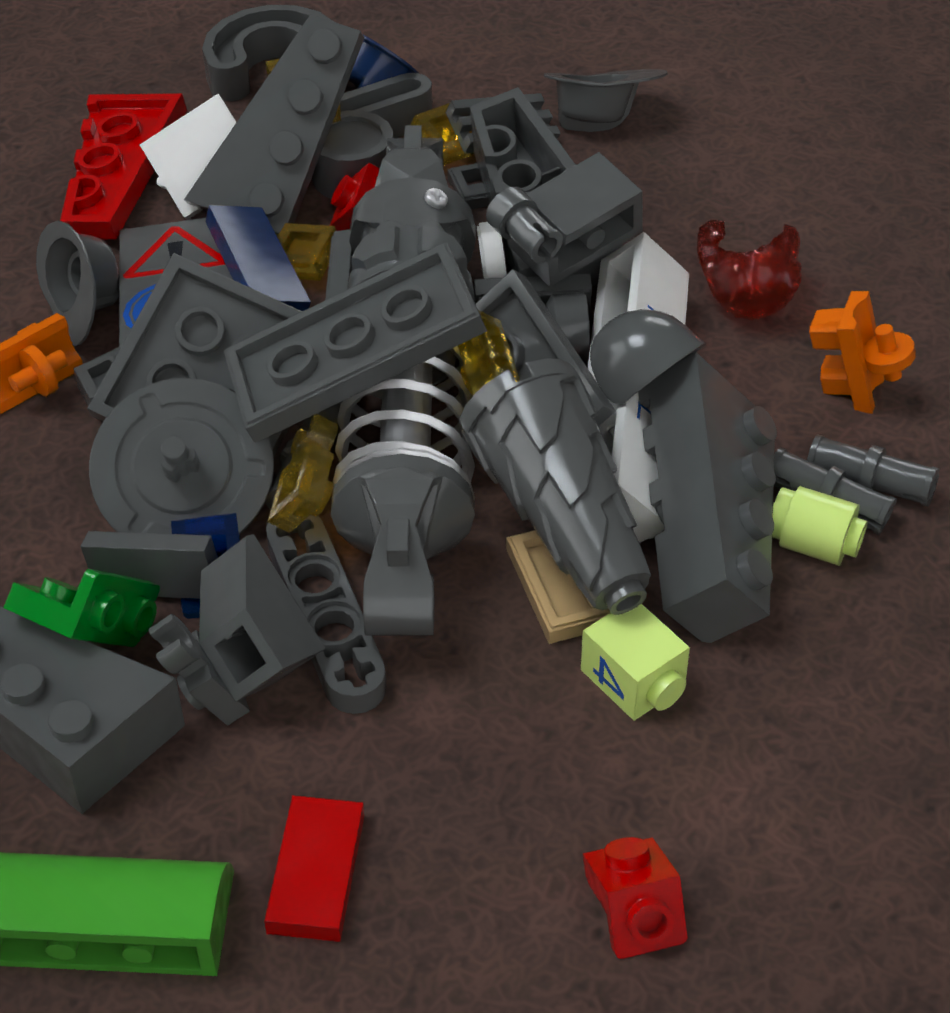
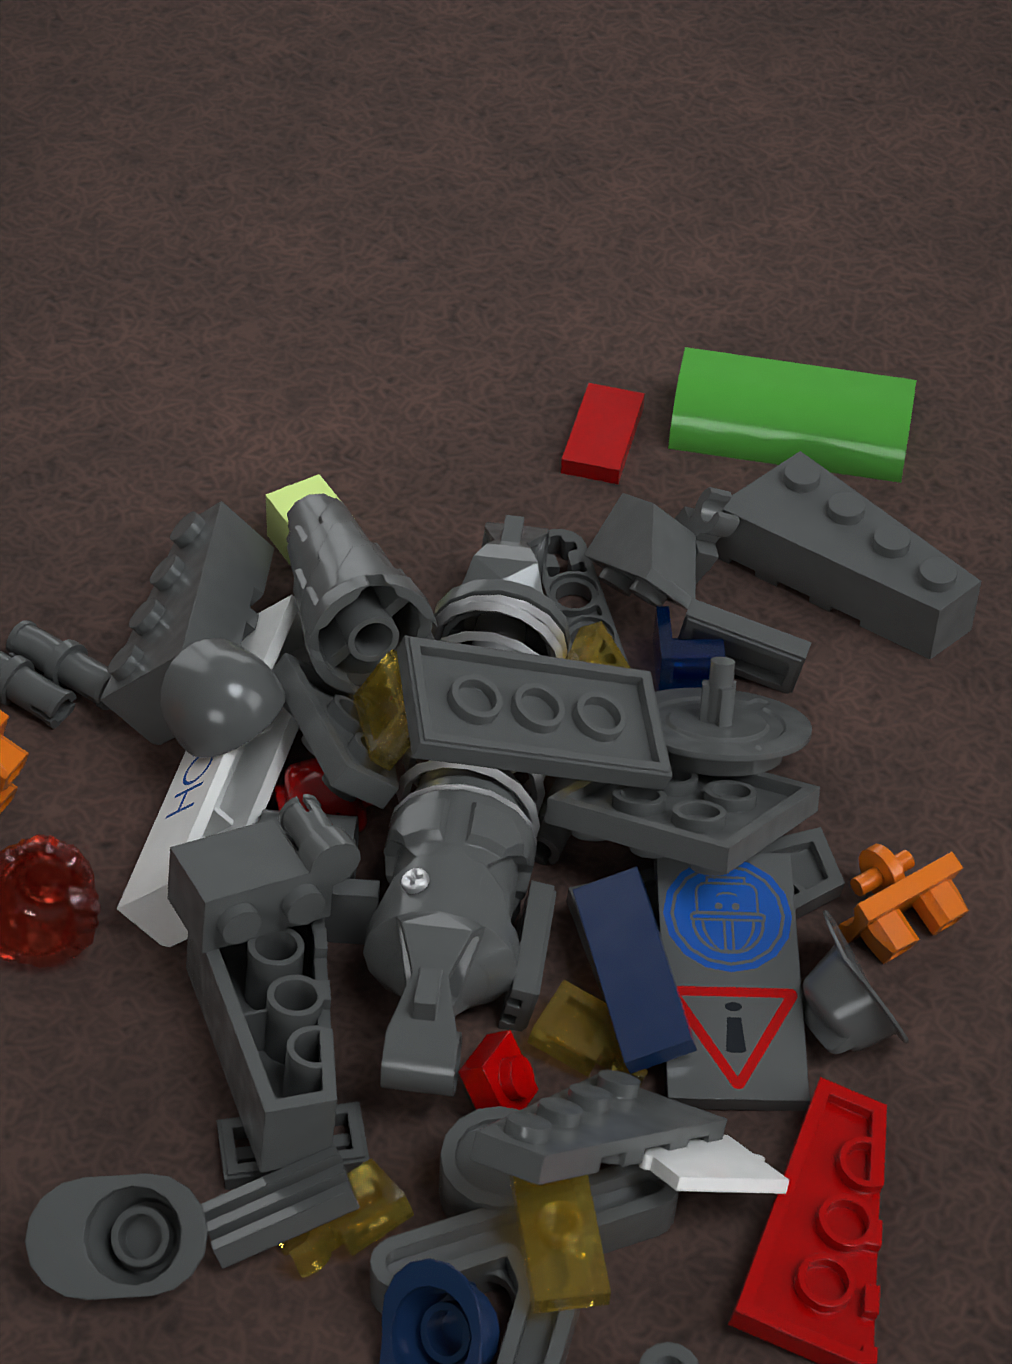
camera: 175 degrees left, 0 degrees up
(99, 610) = (804, 581): green bracket -> none
(491, 251) = (346, 957): white tile -> none
(638, 894) = (359, 380): red bracket -> none
(817, 524) = (91, 620): yellowish green brick -> none

